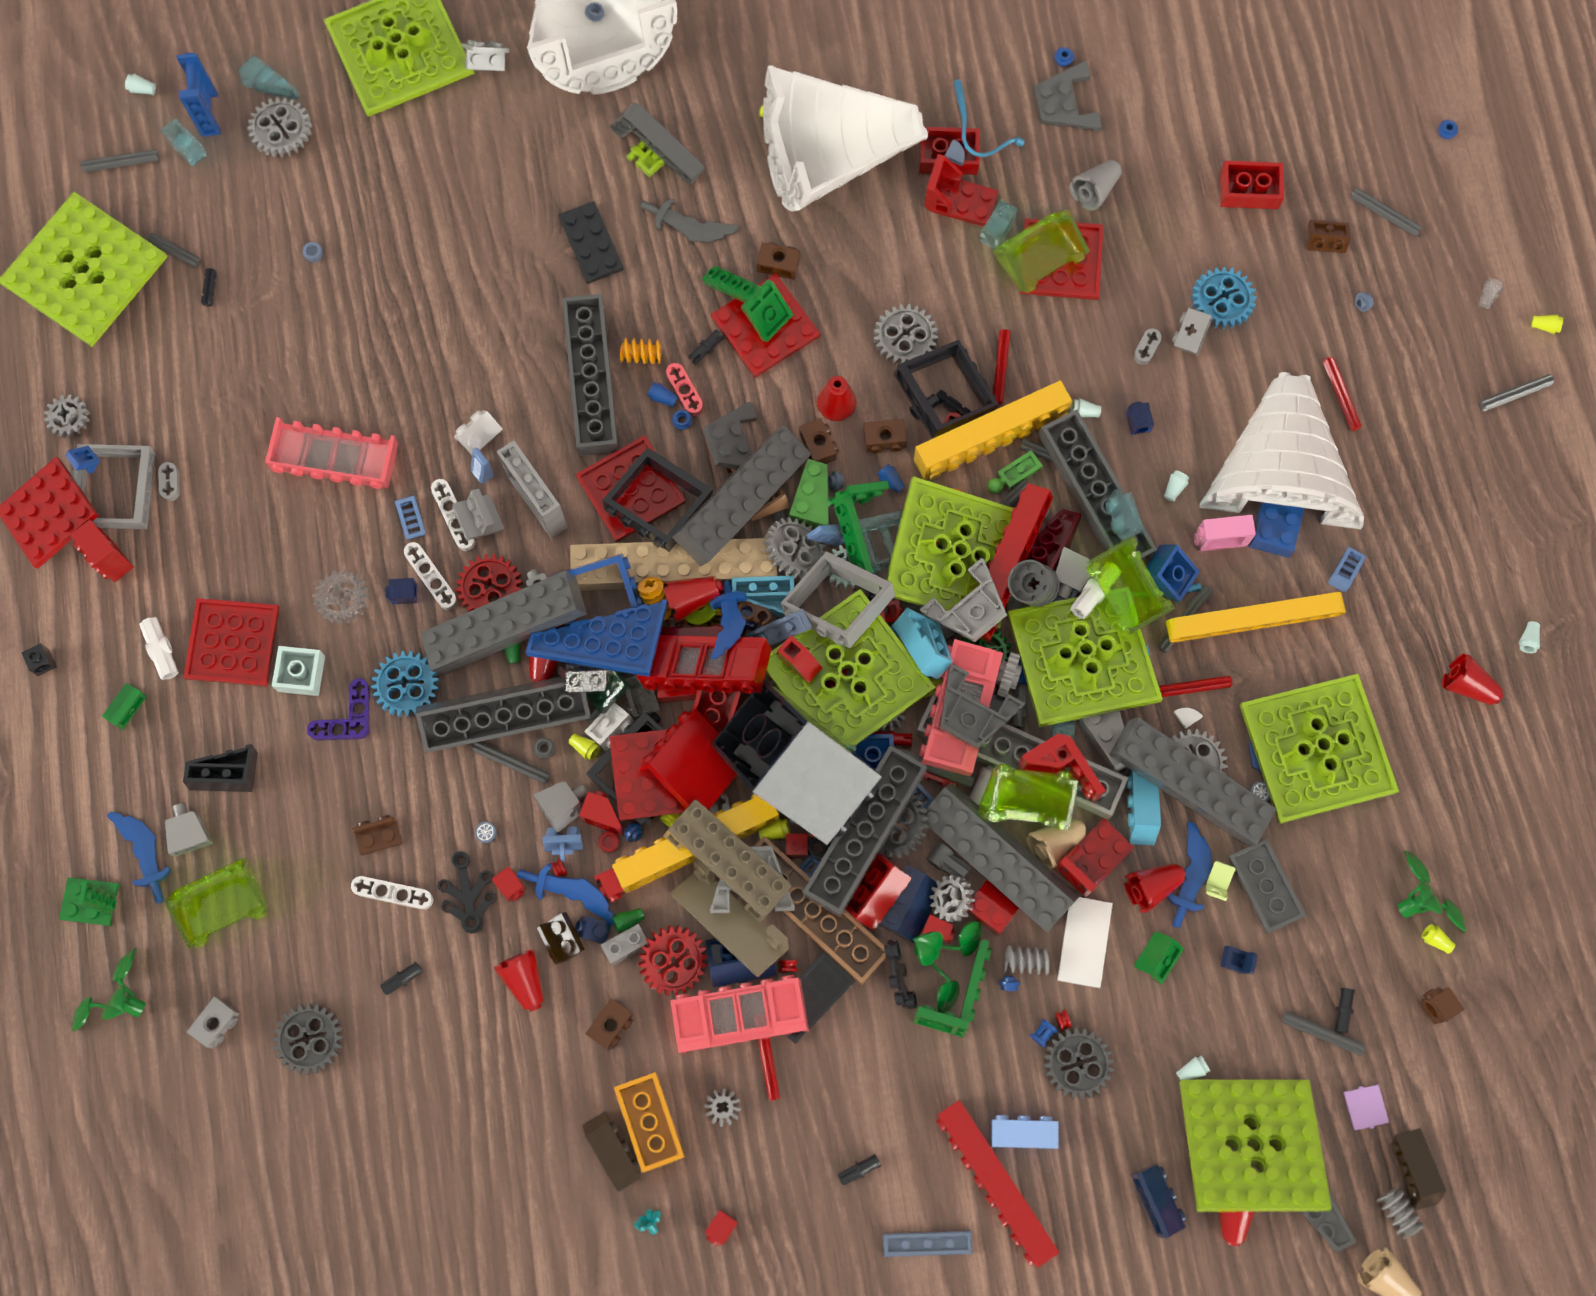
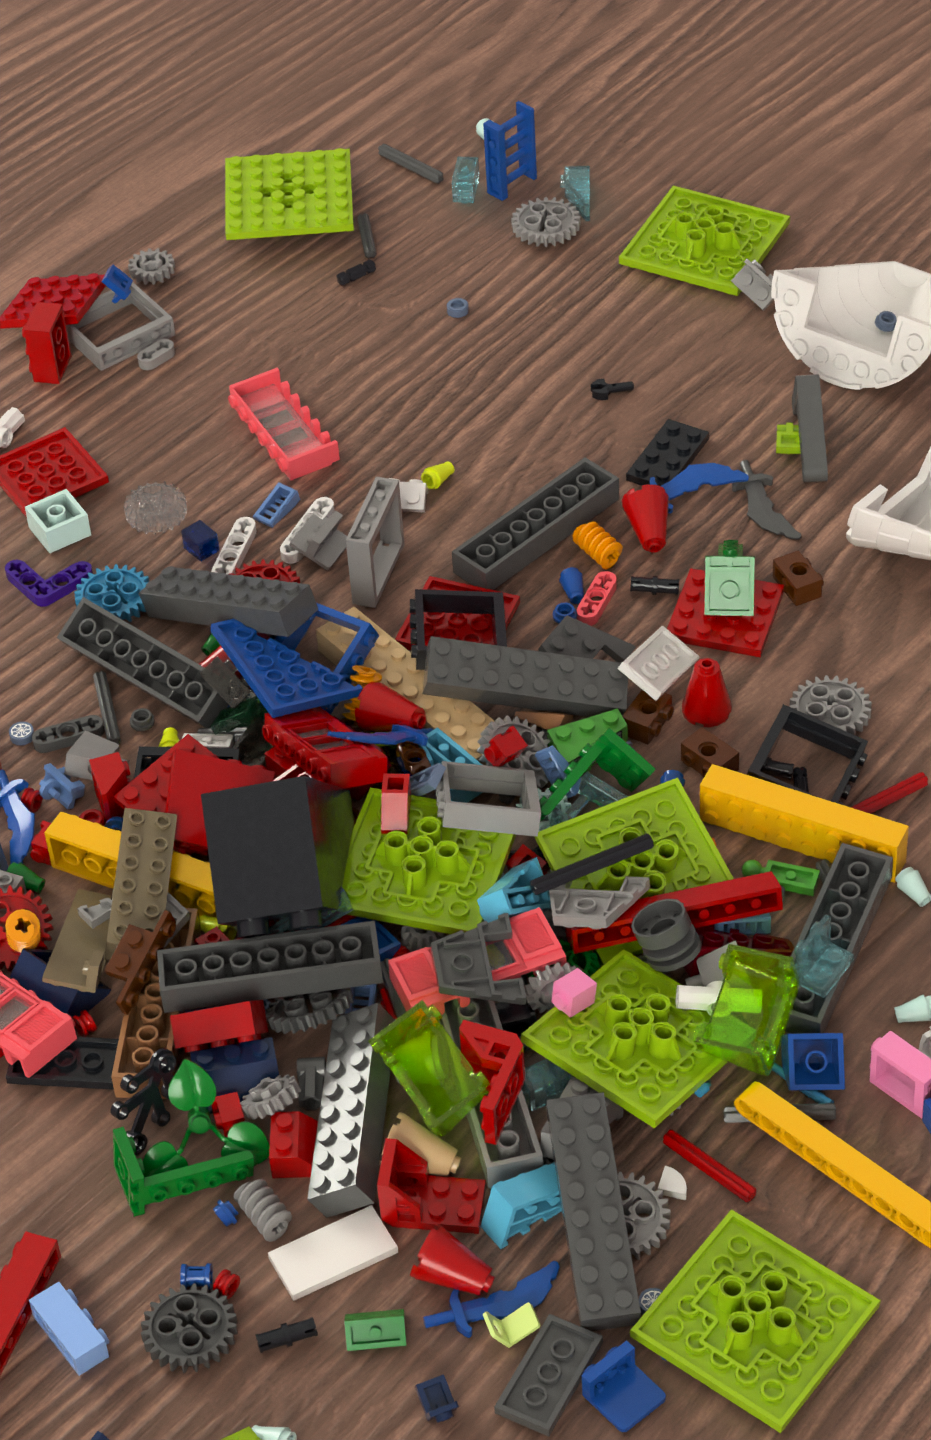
camera: 55 degrees right, 30 degrees down
(477, 395) = (437, 474): none -> neon yellow cone
(481, 226) = (601, 389): none -> black bar
(513, 819) = (60, 742): none -> dark grey beam
(631, 251) = (697, 475): none -> blue sword
(648, 303) = (648, 515): none -> red cone
(700, 959) = (24, 920): none -> light orange piece
(790, 404) = (658, 663): none -> white tile
(791, 909) = (136, 958): none -> reddish brown bracket
(801, 556) = (505, 747): none -> red brick
(946, 582) = (591, 864): none -> black axle
(1035, 671) = (573, 992): none -> bright pink brick
(1125, 1011) = (286, 1334): none -> black pin
(1309, 855) = (621, 1388): none -> blue bracket

